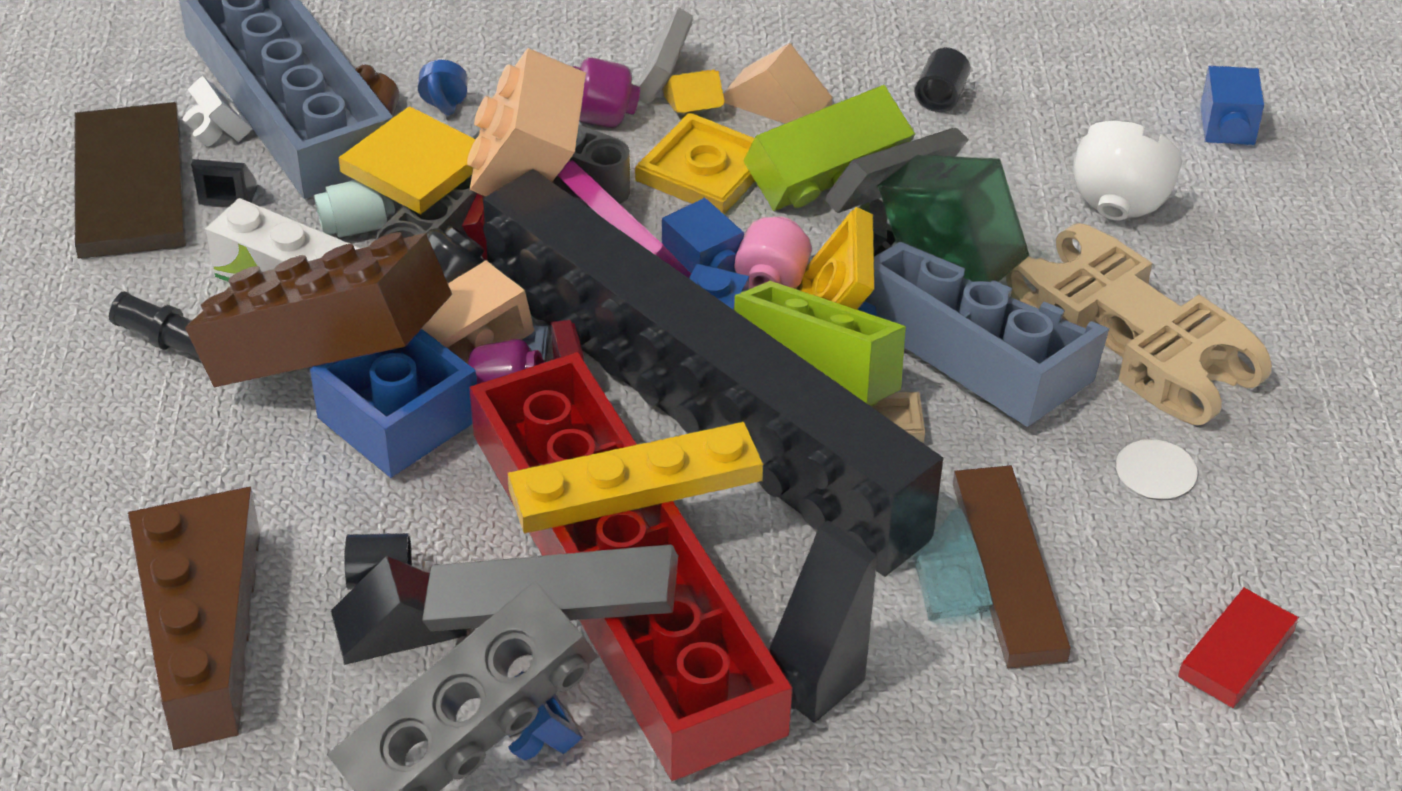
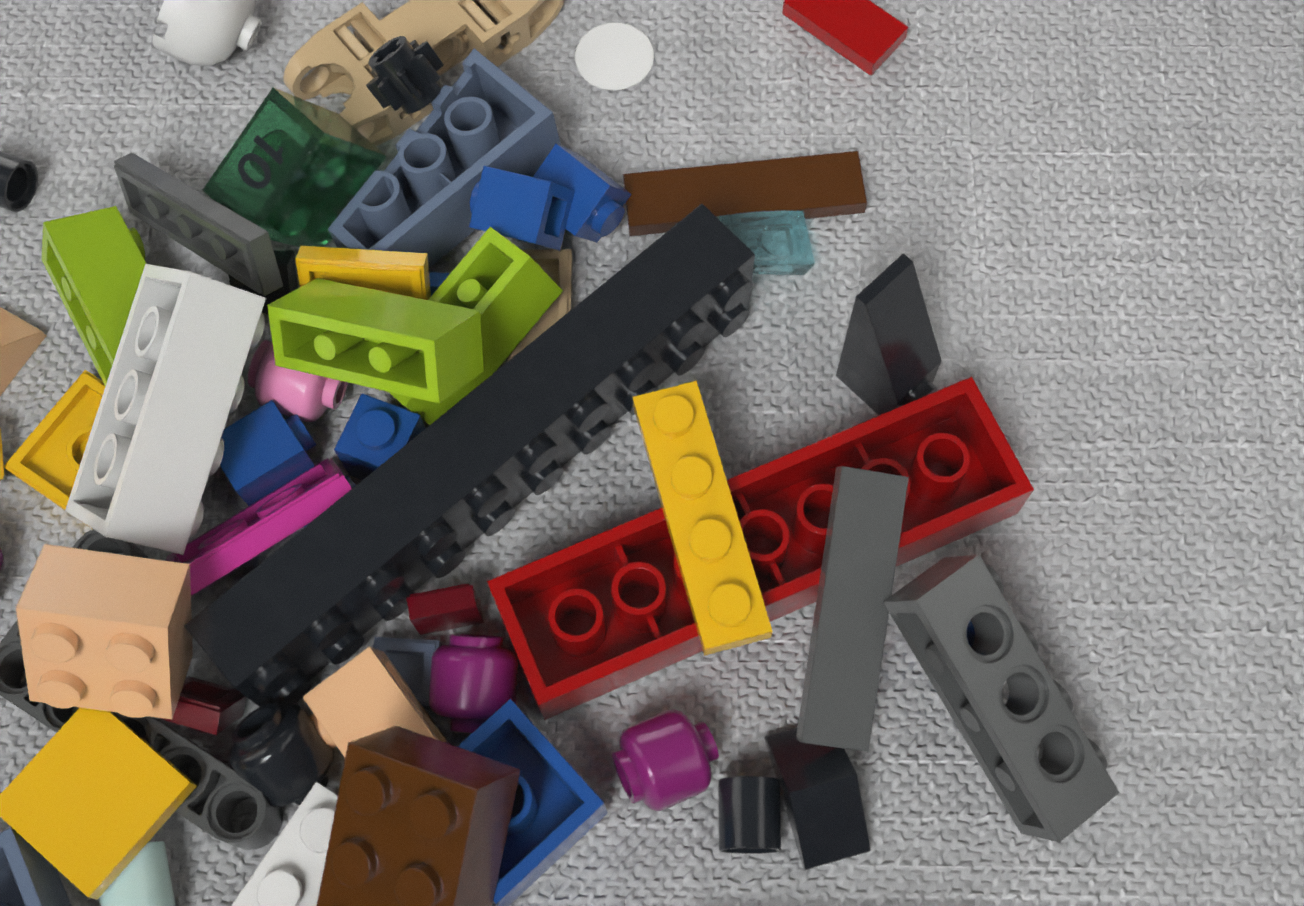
camera: 85 degrees left, 25 degrees up
(428, 496) = (665, 759): none -> magenta head
(721, 154) = (166, 408): none -> white brick
(781, 254) = (377, 339): none -> lime brick
(939, 364) = (521, 207): none -> blue brick
(976, 422) = (597, 198): none -> blue brick
(1063, 276) = (405, 74): none -> black gear

